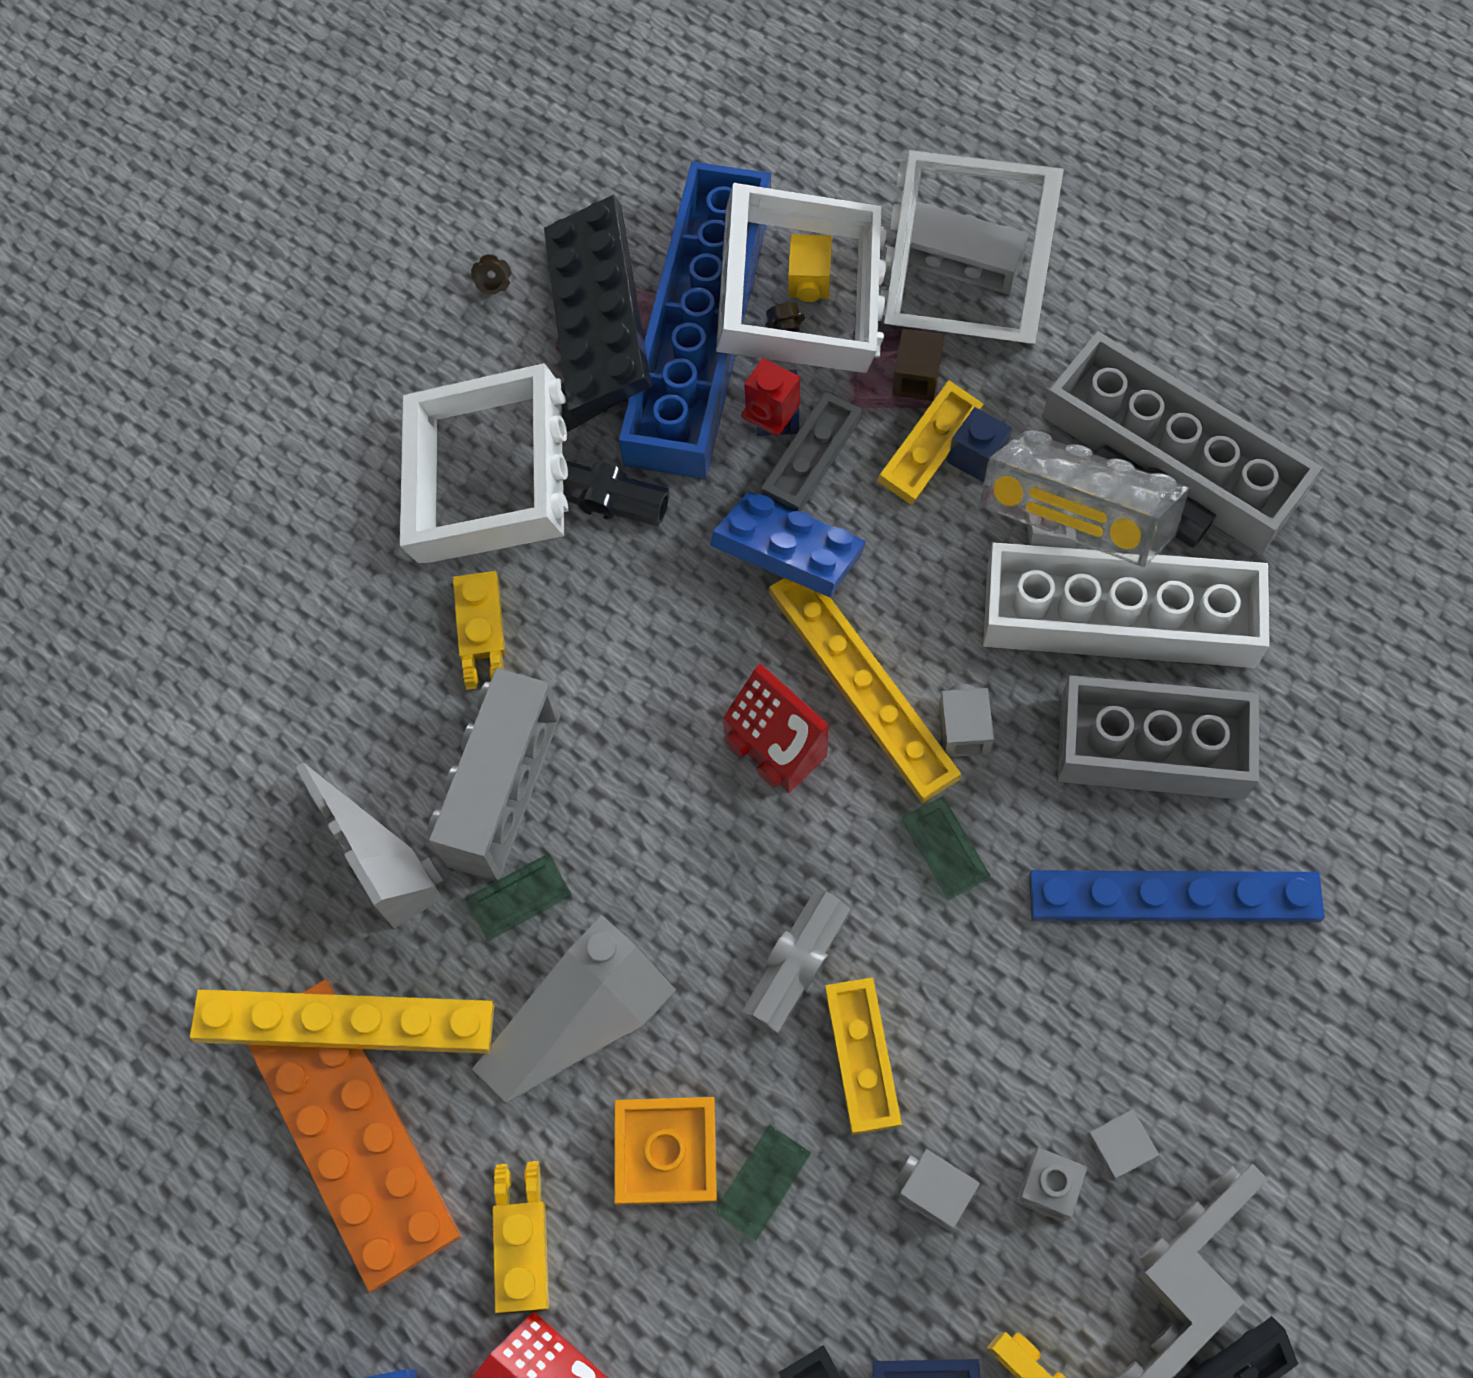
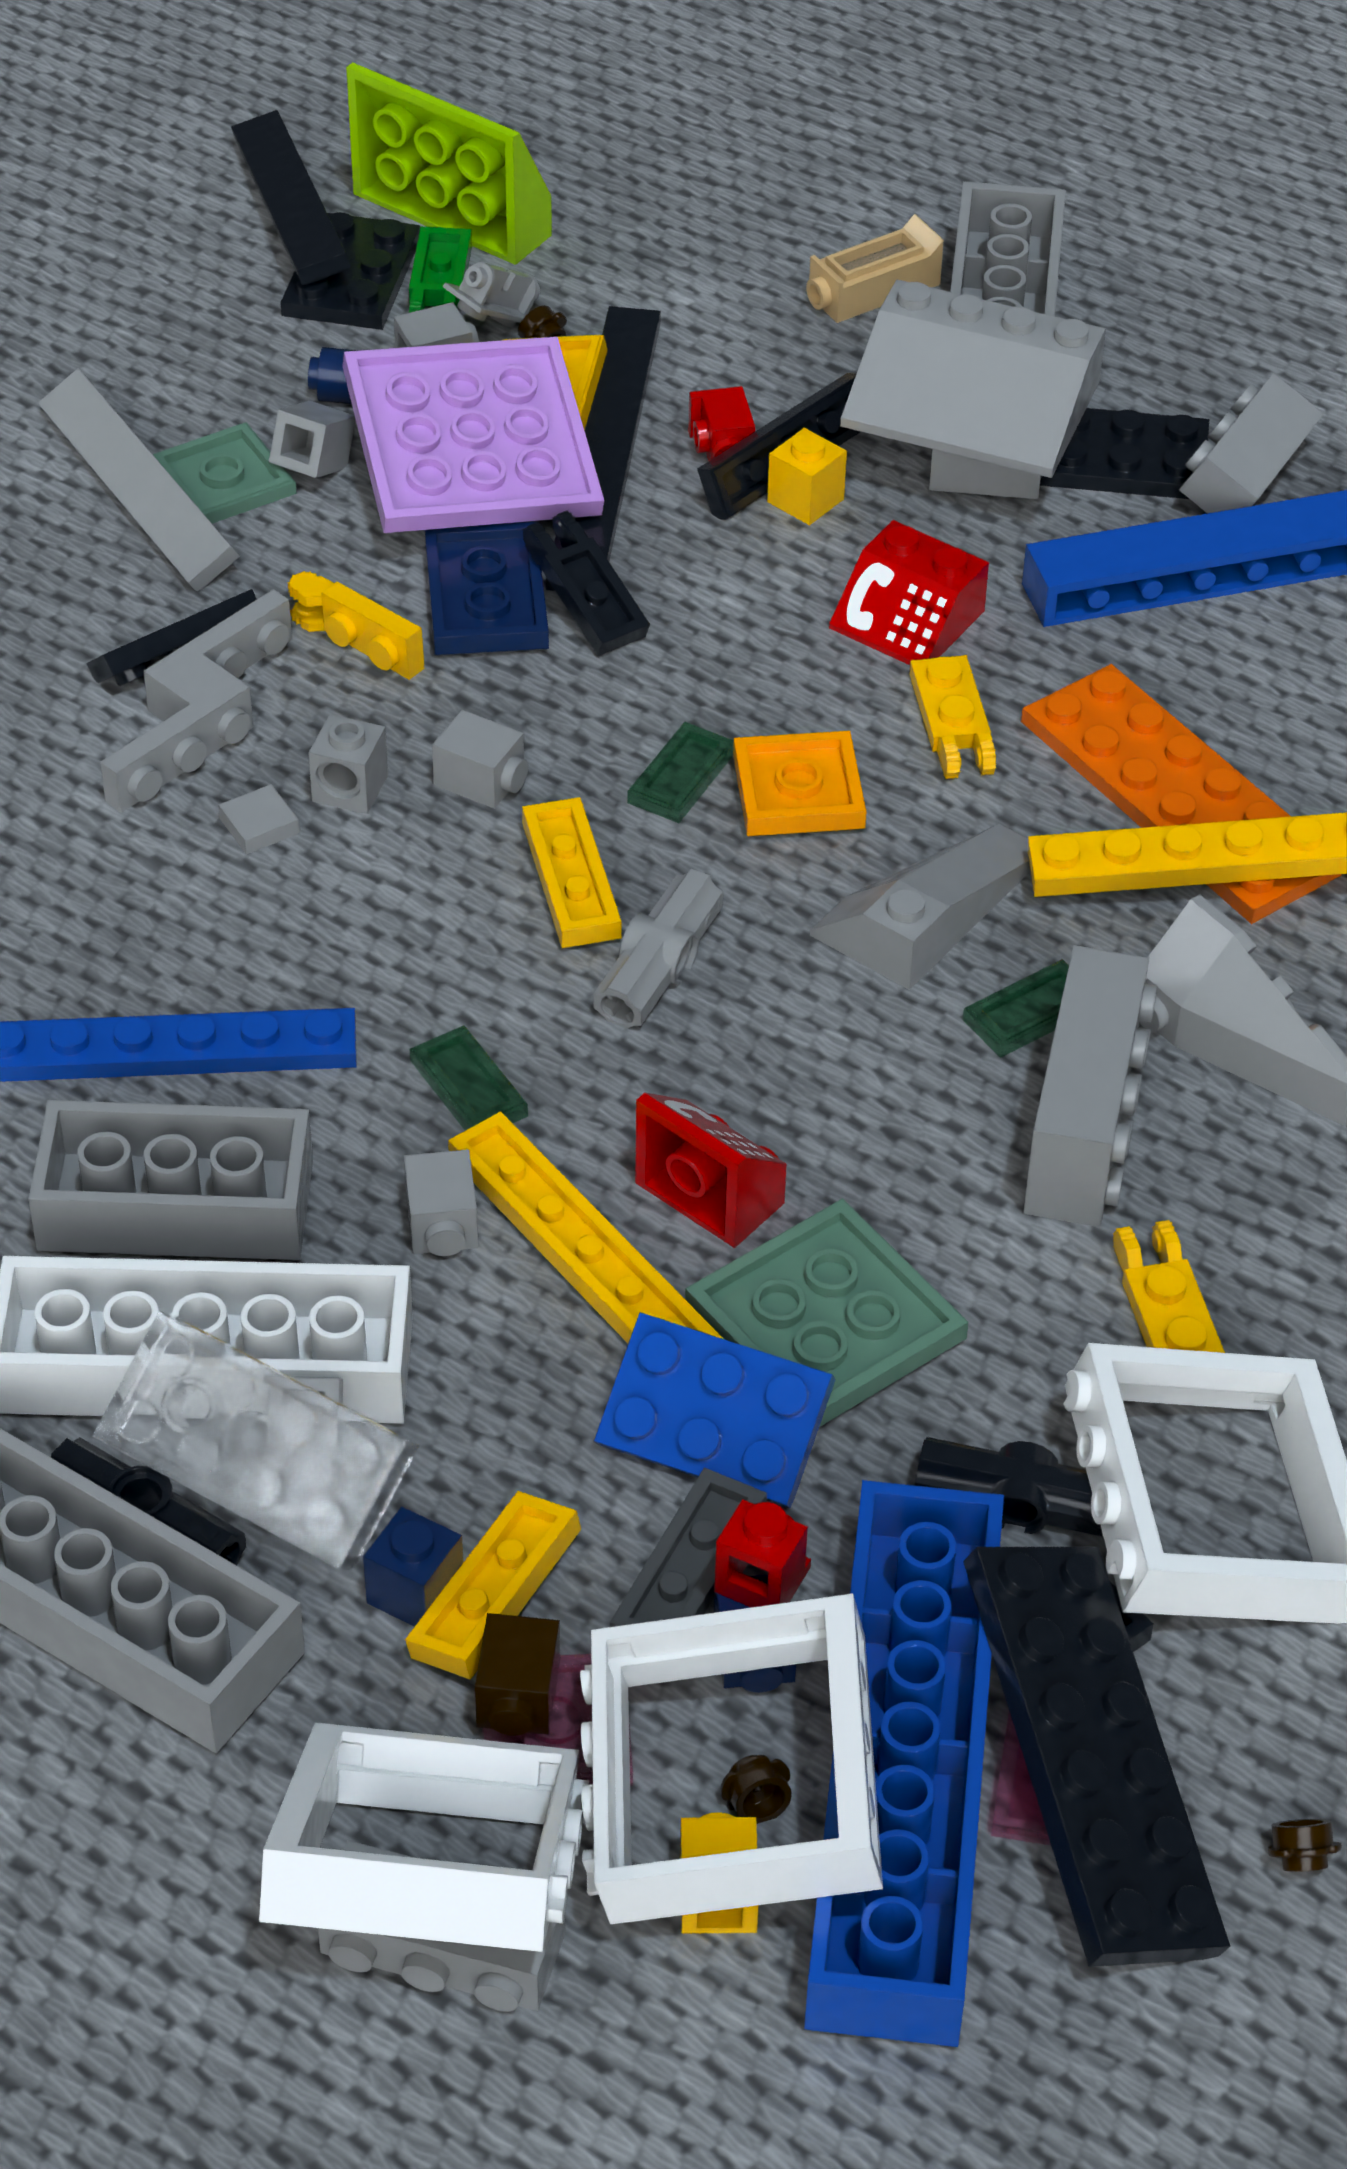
camera: 170 degrees right, 20 degrees down
(707, 626) = (833, 1302): none -> sand green plate

